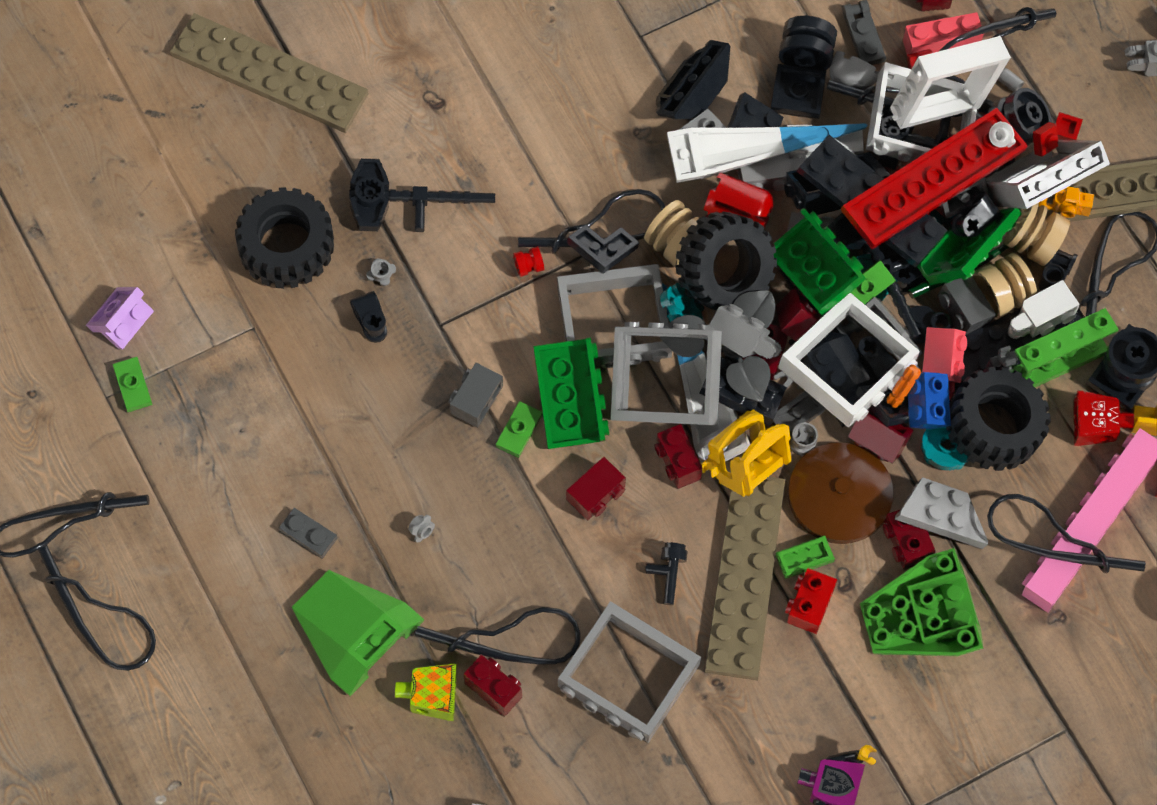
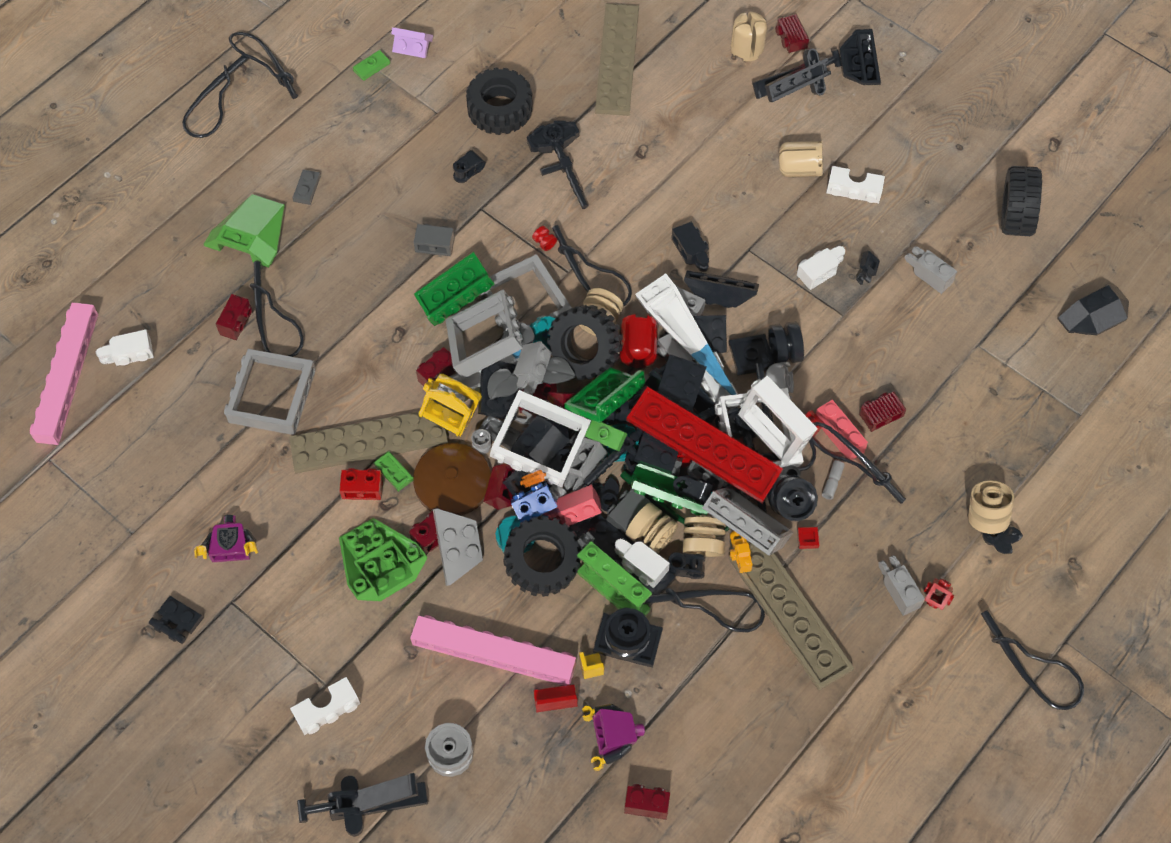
camera: 70 degrees right, 5 degrees down
(378, 265) = (503, 159): light grey plate -> none
(421, 527) = (330, 243): light grey plate -> none
(431, 691) = (218, 285): lime torso -> none
(519, 429) = (421, 274): bright green plate -> none
(596, 489) = (393, 328): dark red brick -> none
(602, 252) = (567, 276): black plate -> none
(615, 95) = (691, 246): none -> black hinge
(674, 554) = (364, 390): black piece -> none
(864, 33) = (819, 382): dark grey plate -> none
(1002, 135) = (759, 476): white plate -> none
(1045, 139) = (780, 516): red plate -> none
(1098, 419) = (575, 629): torso -> none
(1098, 559) = (455, 656): black piece -> none
(1100, 711) = (311, 717): none -> white arch

